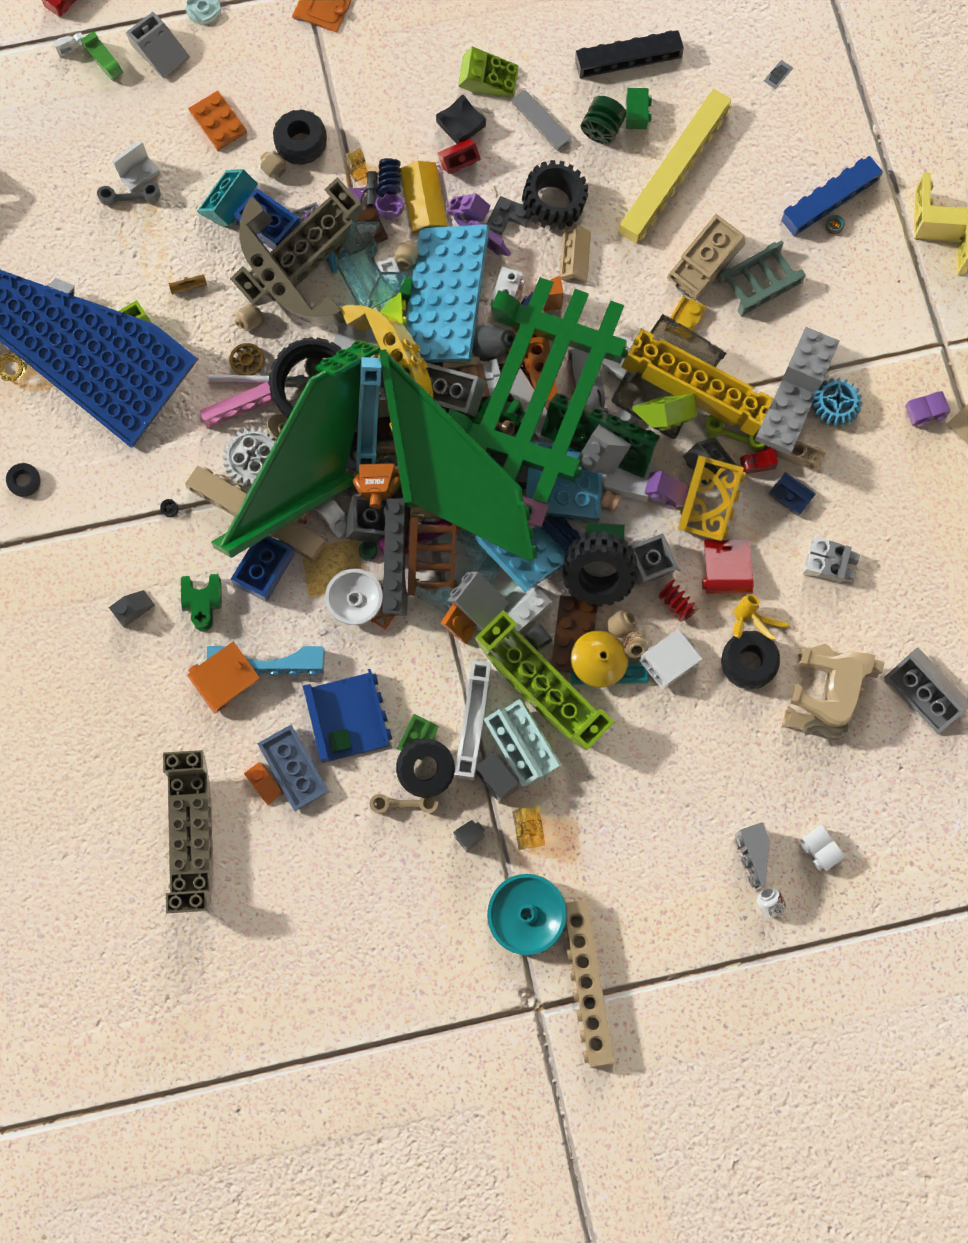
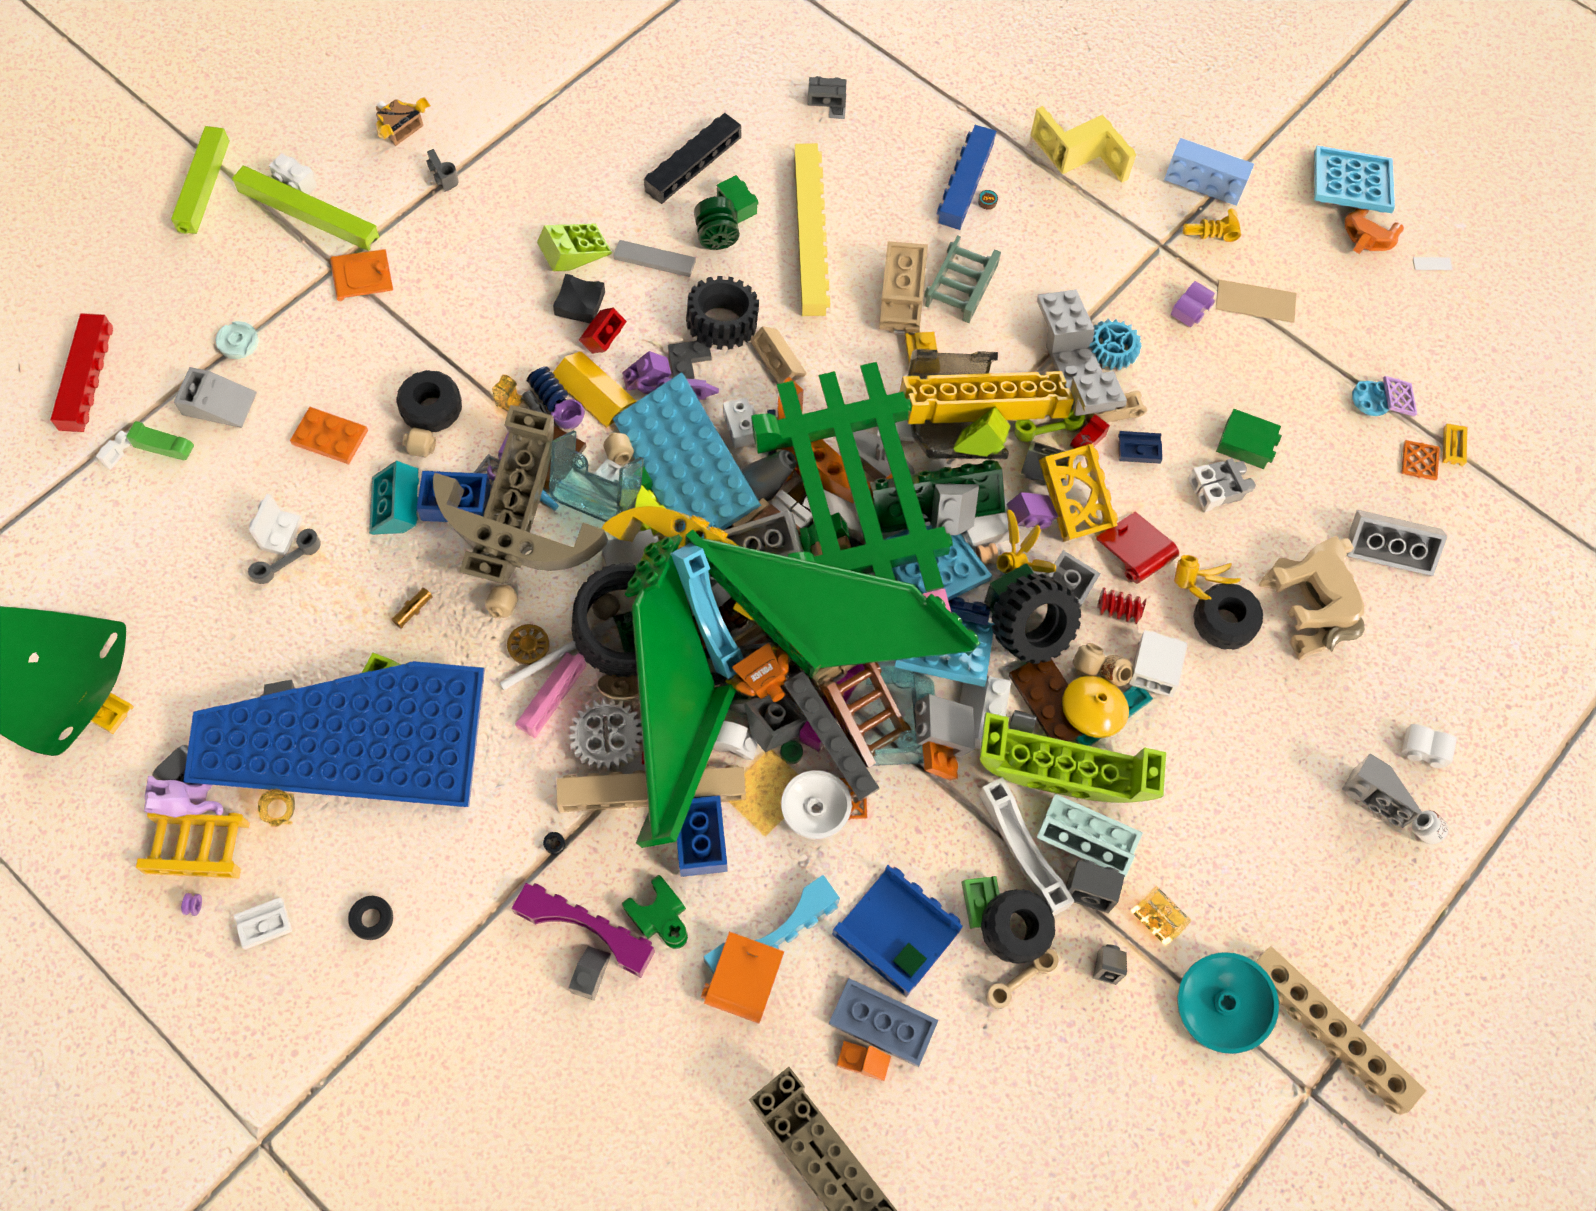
camera: 40 degrees left, 10 degrees down
(163, 609) = (540, 907): none -> magenta arch
(628, 518) = (1011, 560): none -> yellow plant
(775, 58) = (827, 92): none -> dark grey brick
(881, 541) = (1249, 439): none -> green brick

